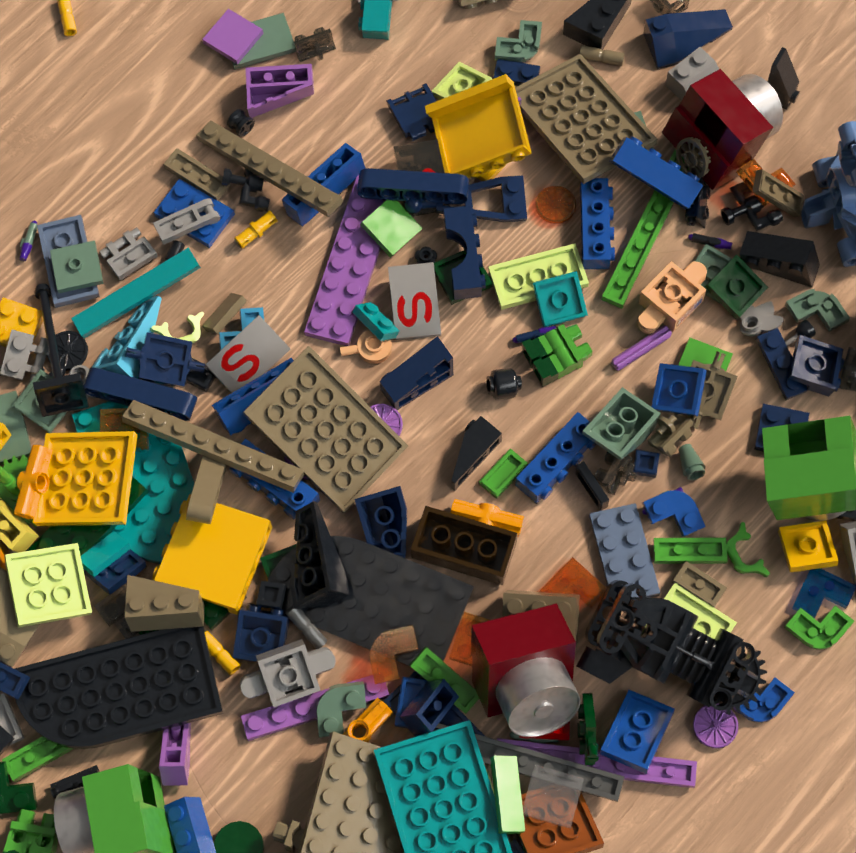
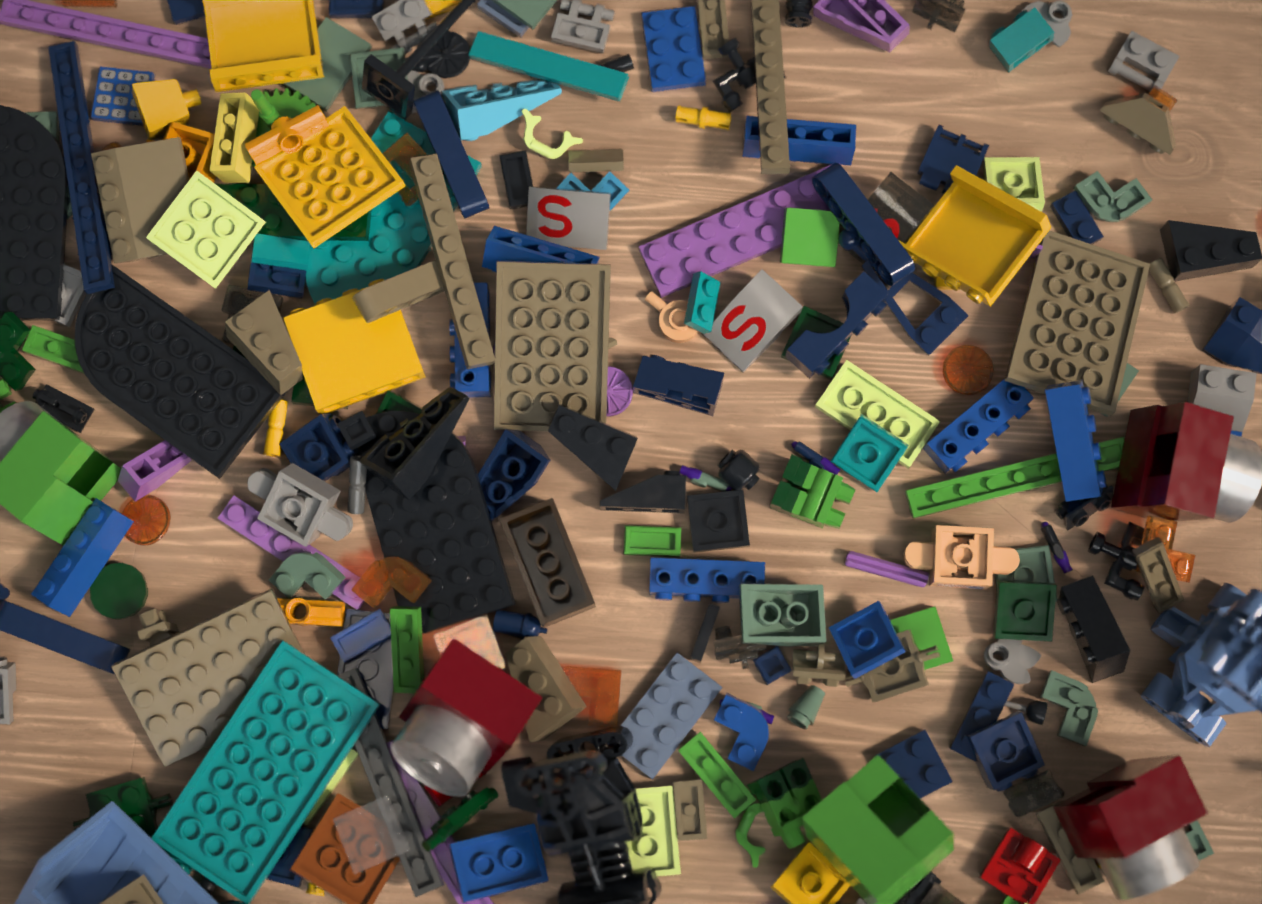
camera: 50 degrees right, 10 degrees up
(165, 360) = (501, 148): dark blue plate -> none
(186, 221) = (653, 49): light grey plate -> none
(207, 785) = (150, 520): none -> clear orange wheel
(412, 453) = (594, 443): none -> black wedge
(419, 255) = (808, 301): black plate -> none
(429, 706) = (364, 657): dark blue brick -> none
(488, 514) = (594, 561): light orange piece -> none
(488, 598) = (517, 624): none -> dark blue piece
(490, 411) = (703, 479): none -> sand green piece
(507, 794) = (338, 793): tile -> none
(525, 422) = (718, 521): none -> black plate
(692, 157) = (1123, 463): dark tan wheel -> none
(744, 517) = (786, 798): none -> hips

